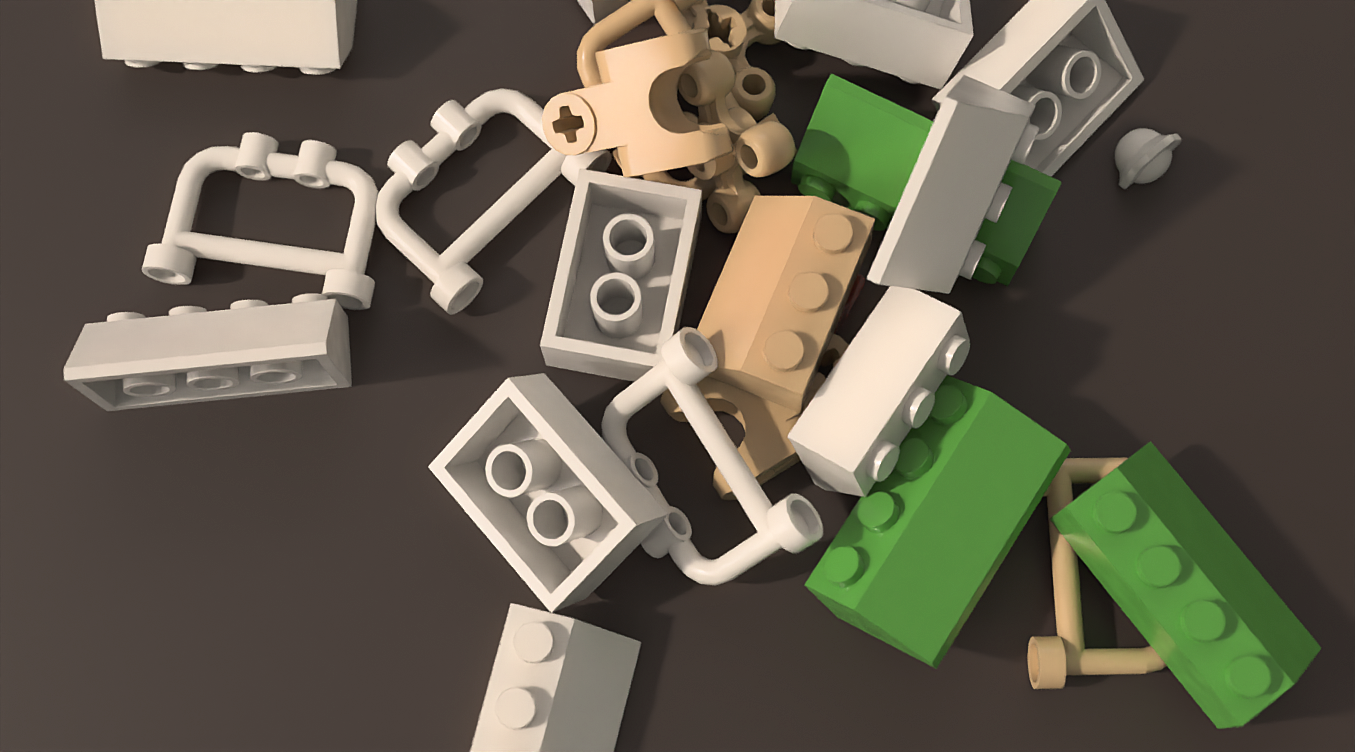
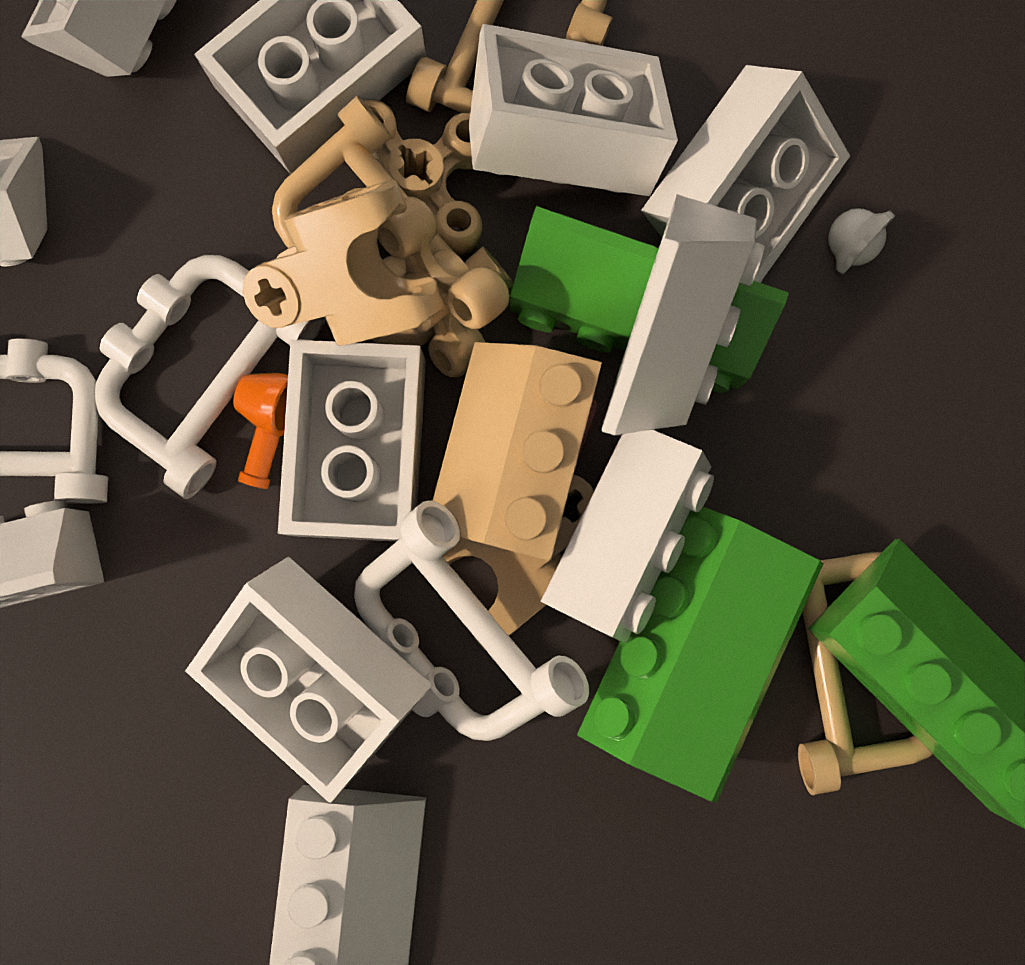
camera: 10 degrees left, 10 degrees up
(540, 233) = (262, 402): none -> orange bar

